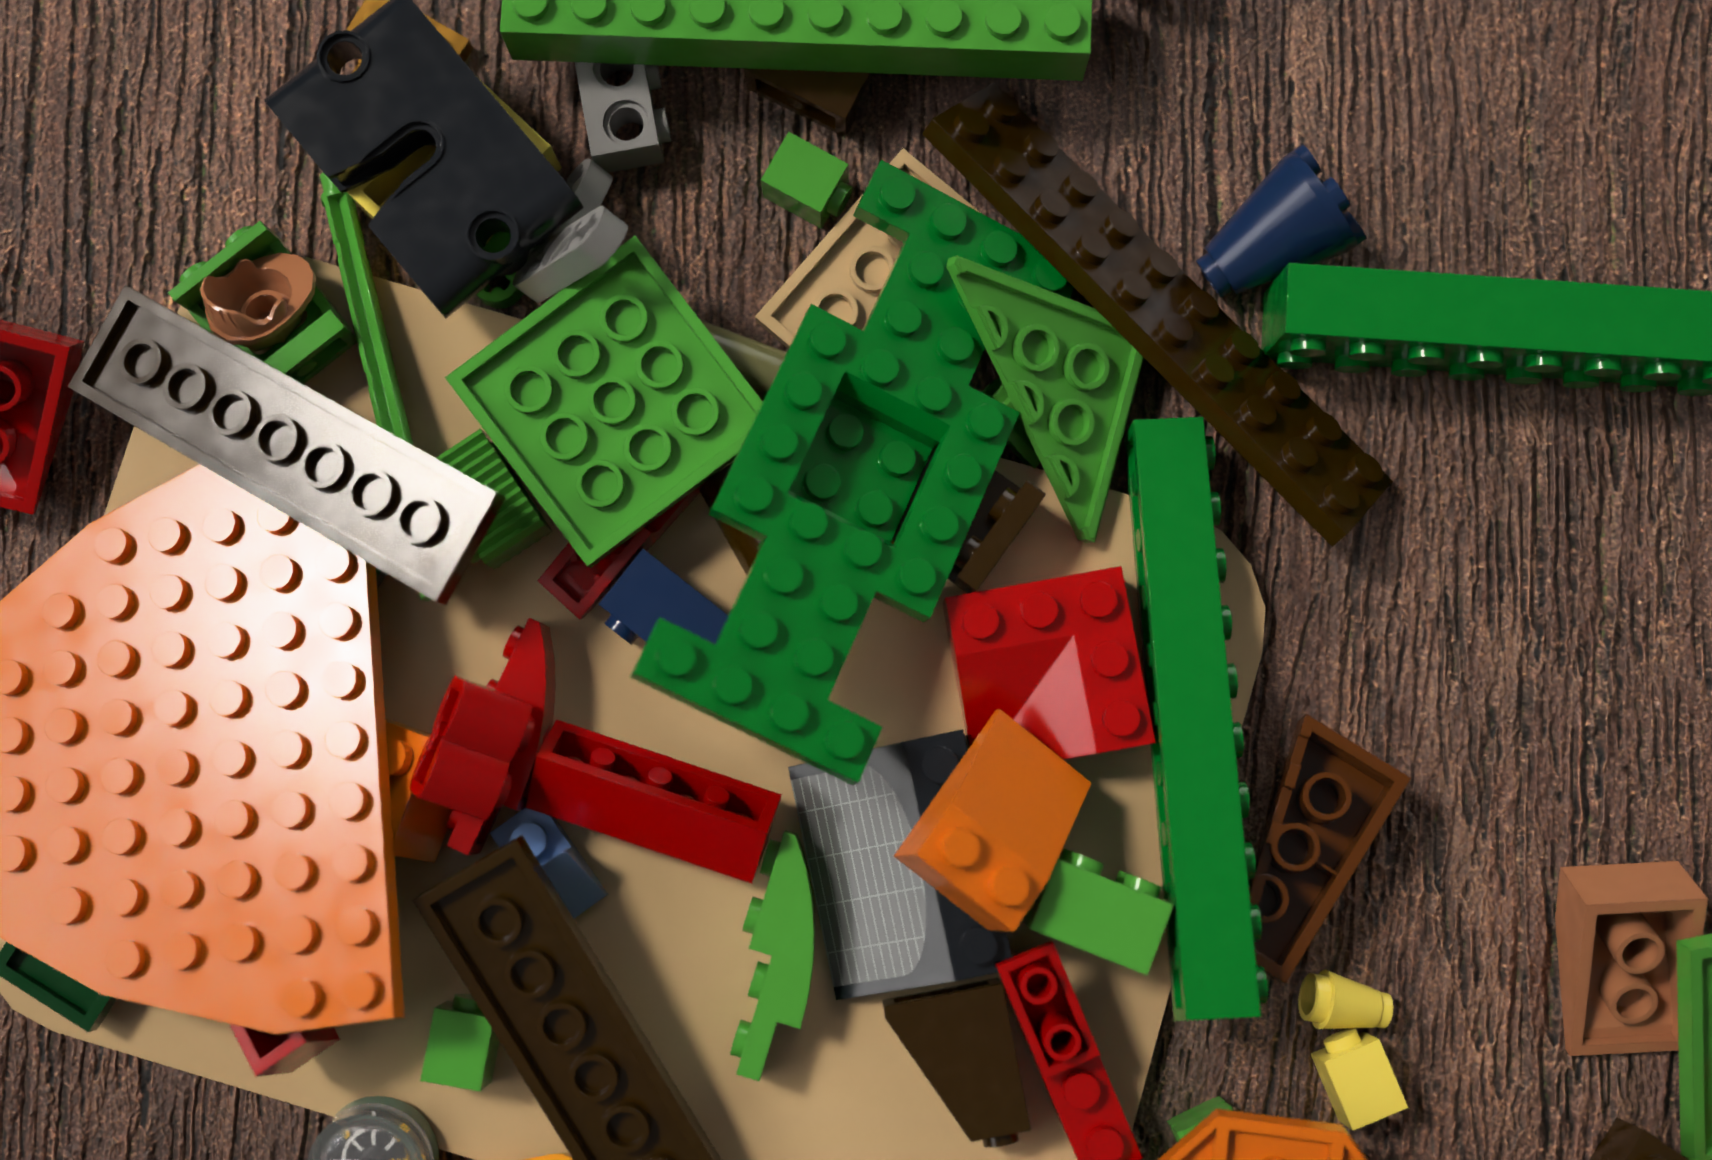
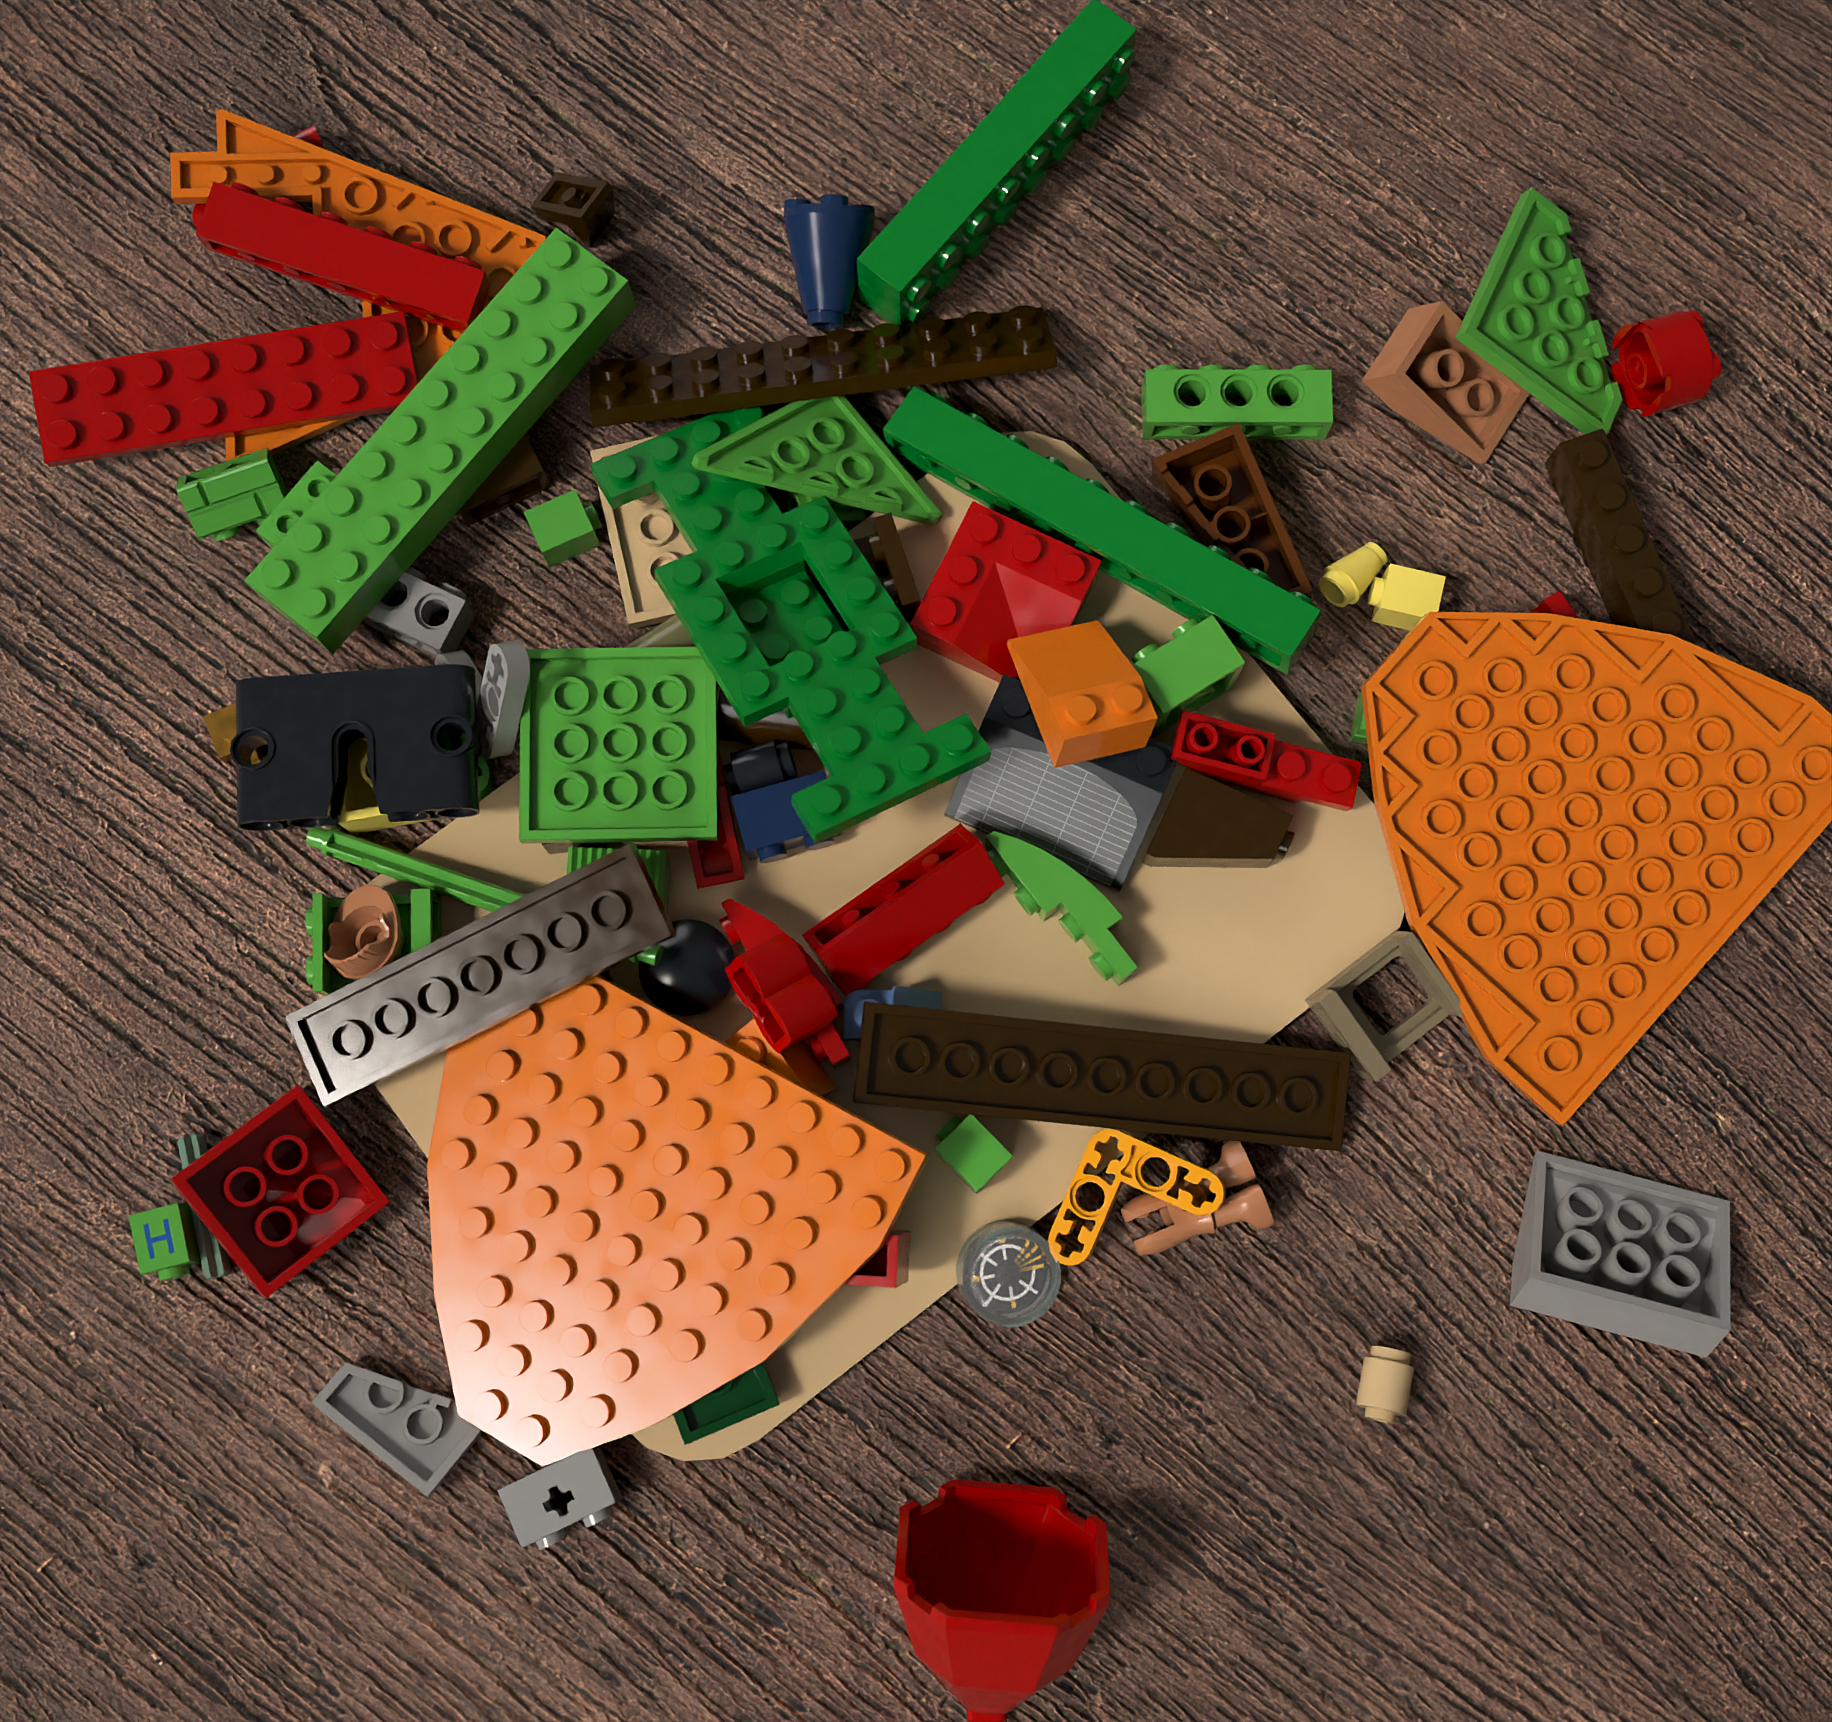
camera: 55 degrees left, 5 degrees down
(454, 638) = (691, 971): none -> black dish
(698, 555) = (760, 766): none -> black brick
(1509, 811) = (1260, 419): none -> bright green brick

